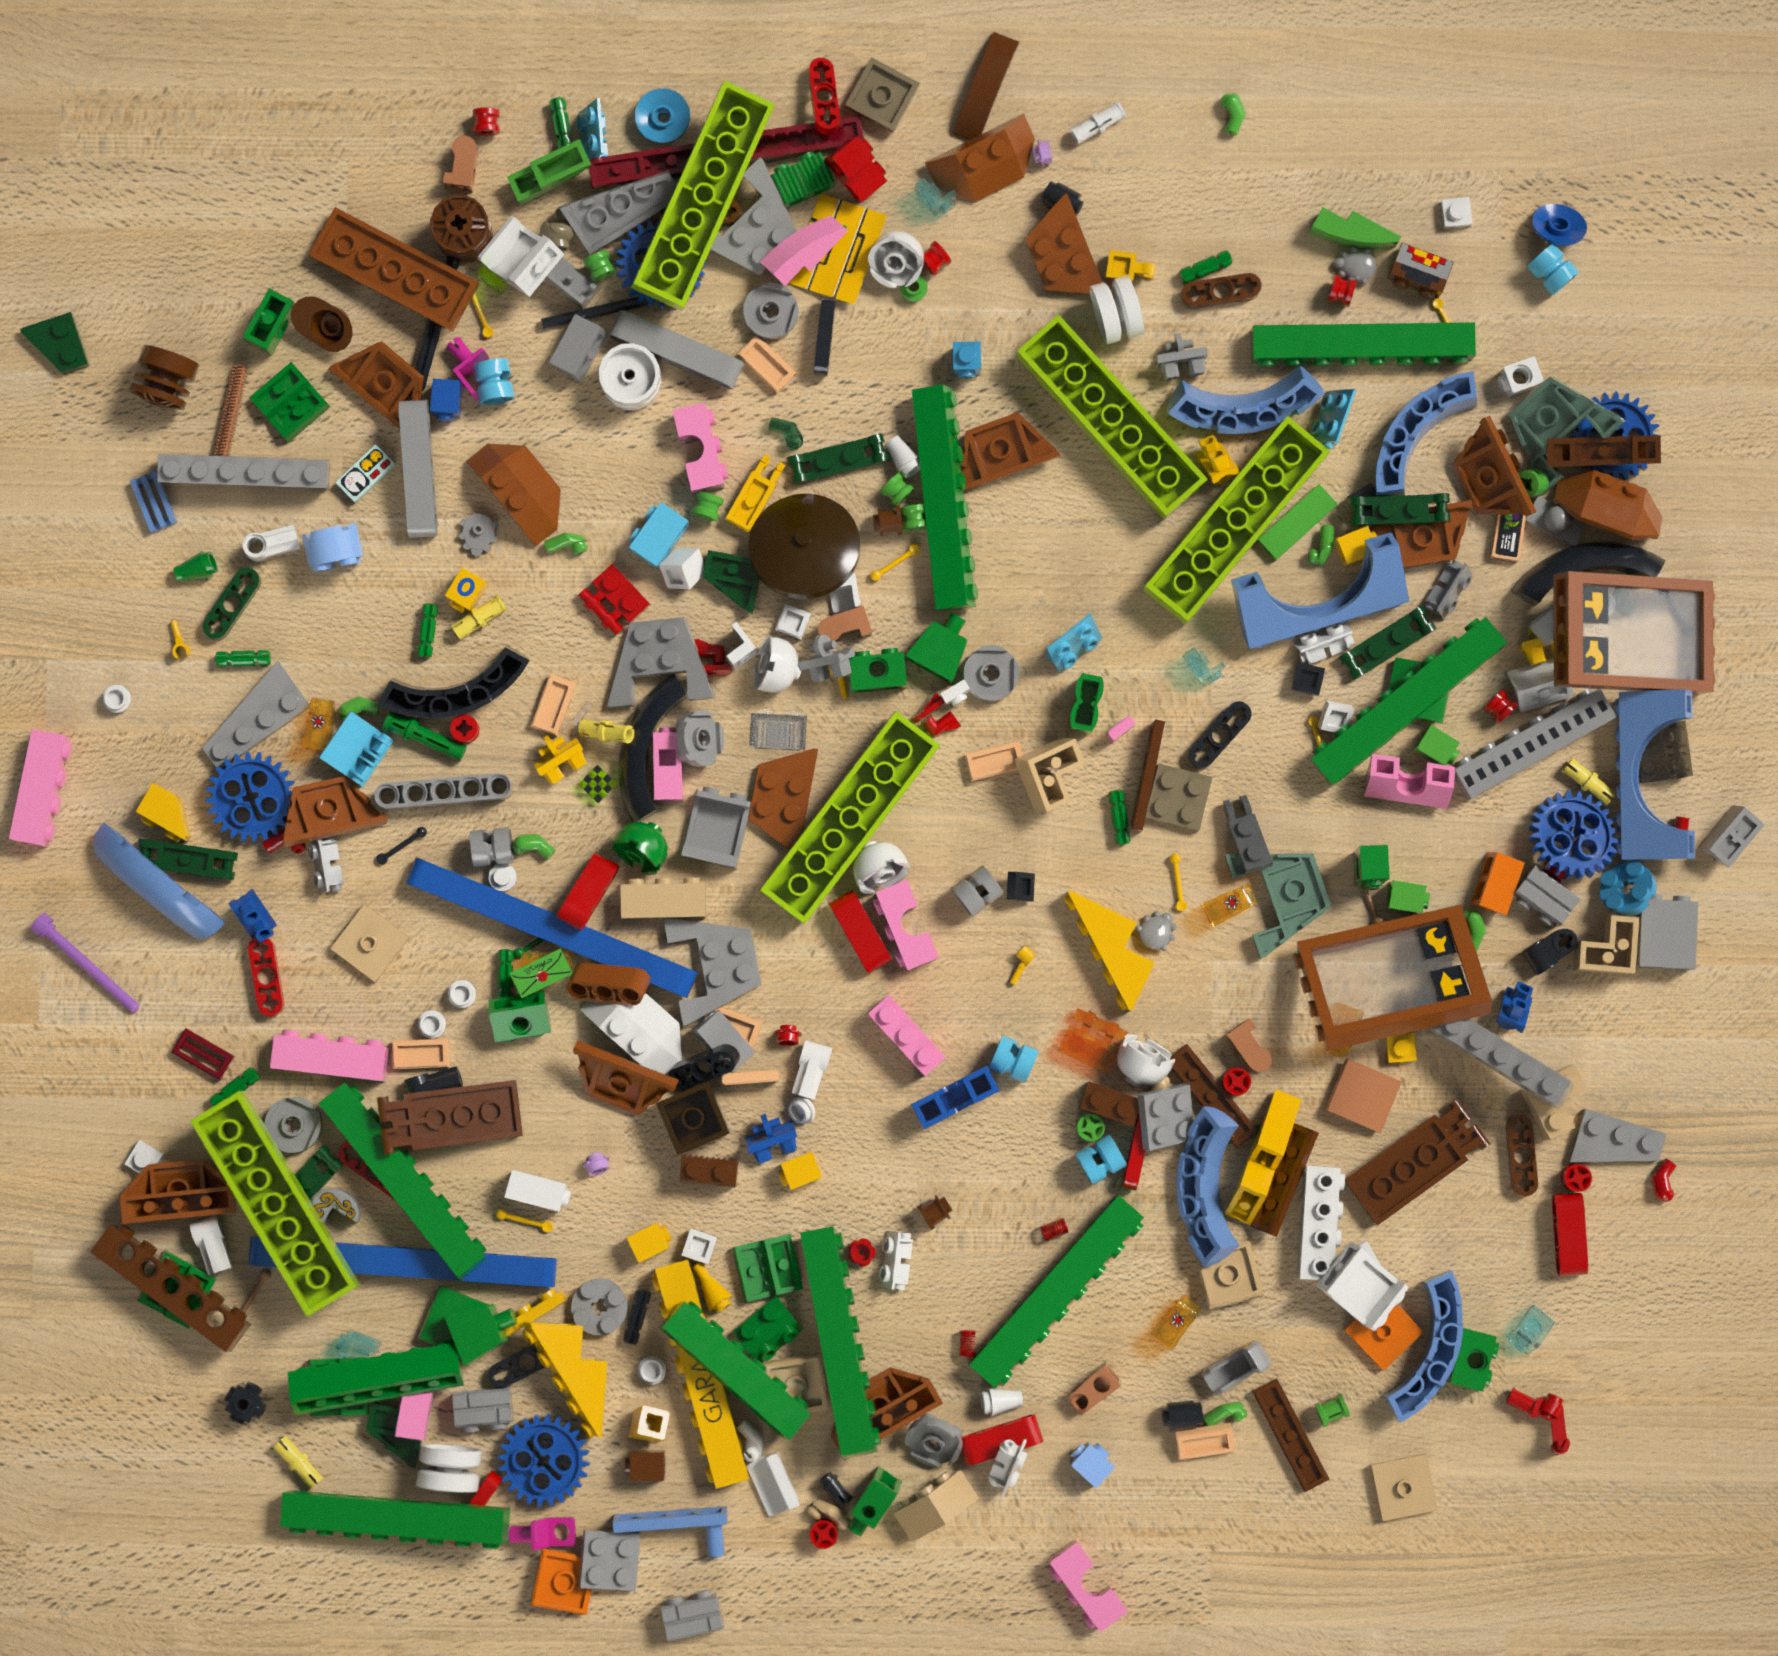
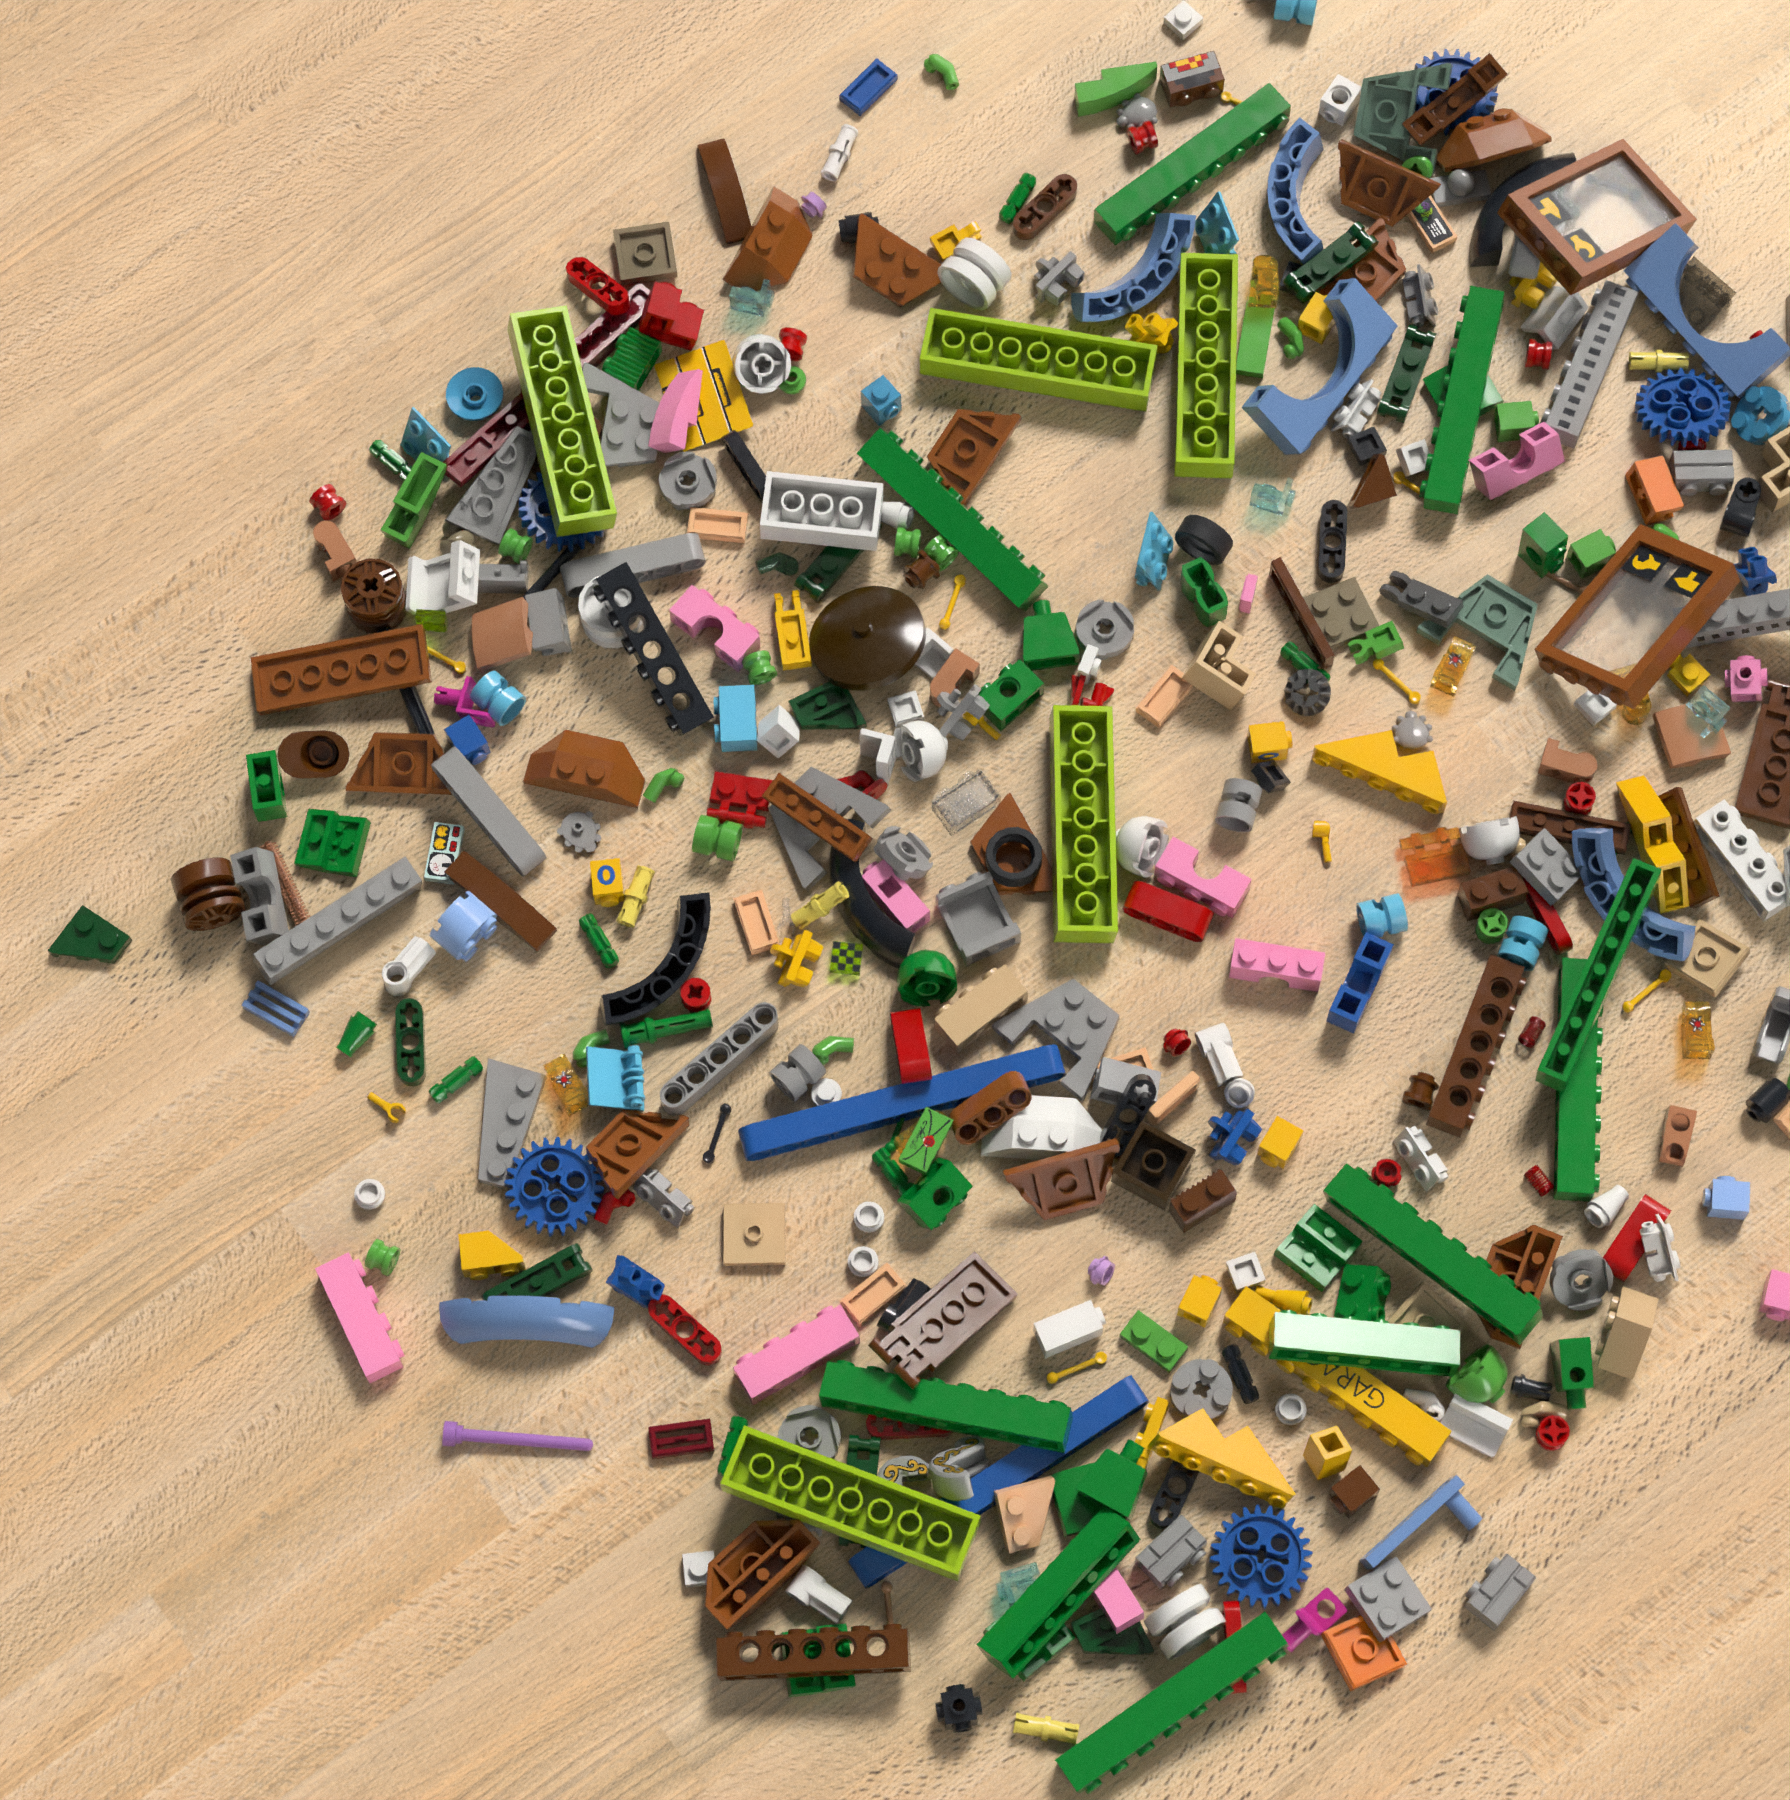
camera: 30 degrees left, 15 degrees down
(89, 755) = (382, 1257): none -> bright green wheel
(211, 395) = (258, 874): none -> light grey arch
(373, 1228) = (955, 1467): none -> light grey animal
(376, 545) = (510, 907): none -> reddish brown slope
(400, 1299) = (1023, 1512): none -> light nougat wing
(534, 332) = (501, 634): none -> nougat slope
(572, 619) = (716, 837): none -> bright green wheel
(594, 1244) = (1153, 1341): none -> bright green plate
(644, 366) = (696, 710): none -> black brick
(654, 662) = (817, 817): none -> dark orange tile
(756, 797) = (1020, 835): none -> black tyre
(802, 1455) = (1480, 1377): none -> bright green cylinder
(845, 419) = (821, 511): none -> white brick
(937, 1239) = (1497, 974): none -> reddish brown brick
(1041, 858) = (1268, 742): none -> yellow brick
(1113, 841) = (1314, 703): none -> dark grey gear
(1118, 662) = (1203, 539): none -> black tyre
(1128, 1233) = (1598, 975): none -> green brick
(1165, 82) = (868, 87): none -> blue tile
(1188, 1262) = (1664, 976): none -> yellow hinge
(1189, 844) = (1380, 641): none -> bright green plate
(1283, 717) = (1374, 484): none -> reddish brown slope
(1304, 1022) = (1594, 706): none -> white plate
(1340, 483) = (1264, 282): none -> clear yellow leg
(1389, 1089) = (1710, 709): none -> clear light blue bracket
(1427, 1090) = (1746, 679): none -> bright pink brick

